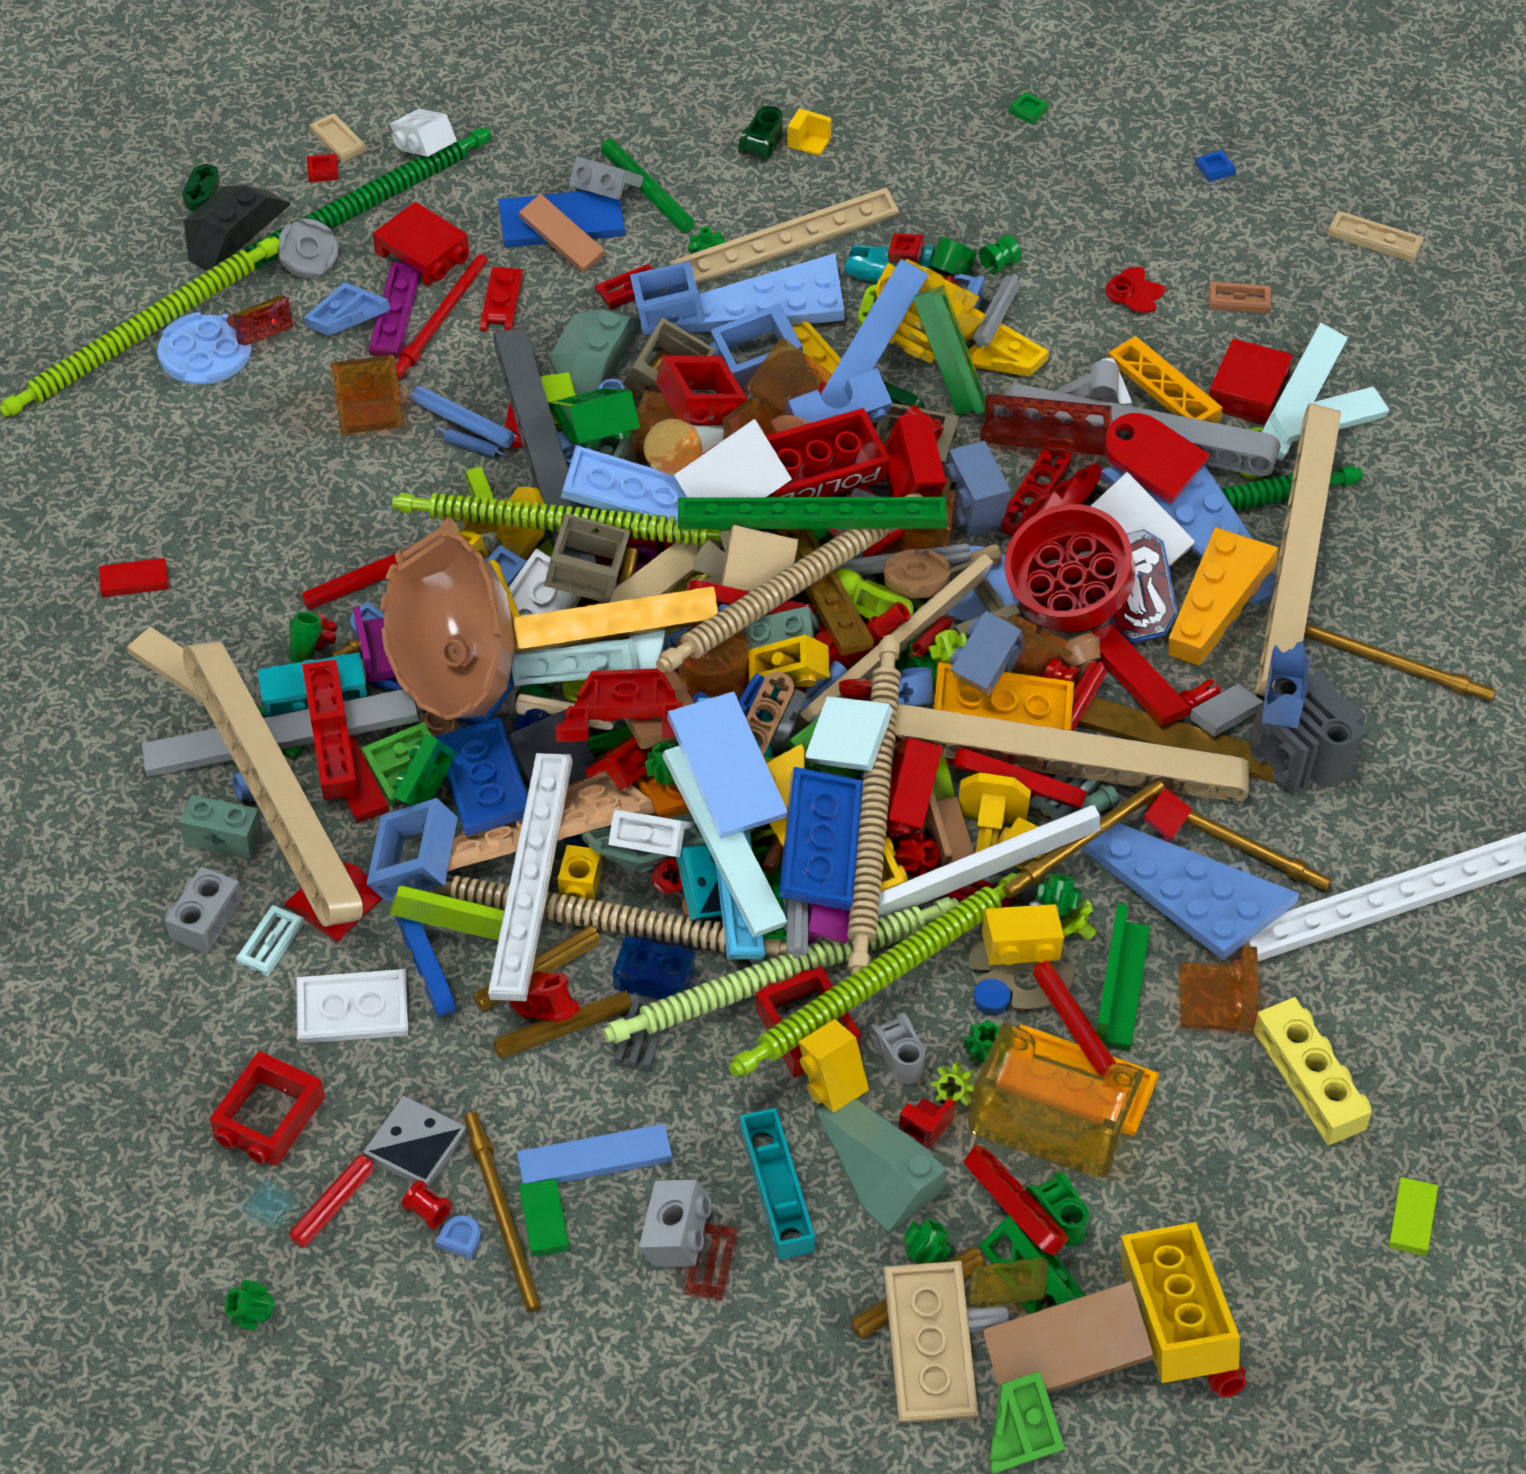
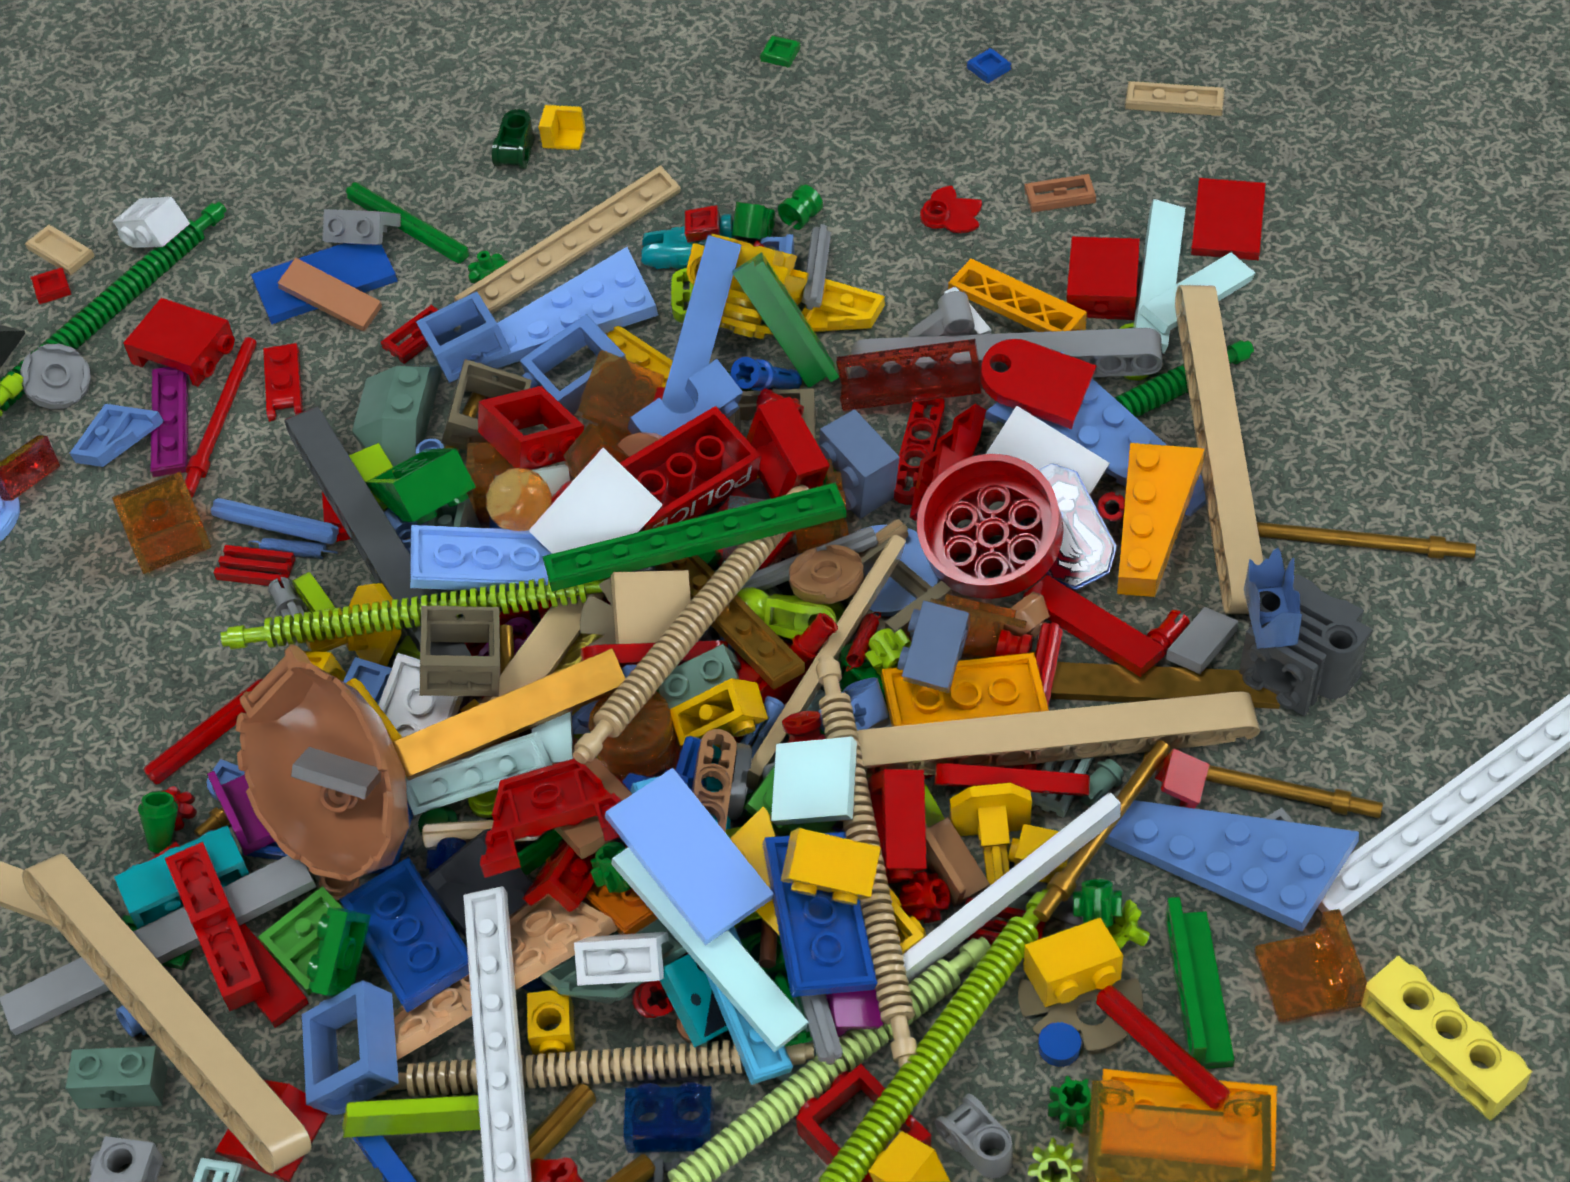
camera: 10 degrees left, 0 degrees up
(437, 446) = (254, 560): none -> red tile
(455, 483) = (285, 598): none -> light grey axle
(459, 632) = (336, 773): none -> light grey tile
(839, 800) = (830, 865): none -> yellow brick
(914, 392) = (761, 375): none -> blue pin
(1177, 580) = (1102, 509): none -> red pin
(1384, 356) = (1228, 218): none -> red tile

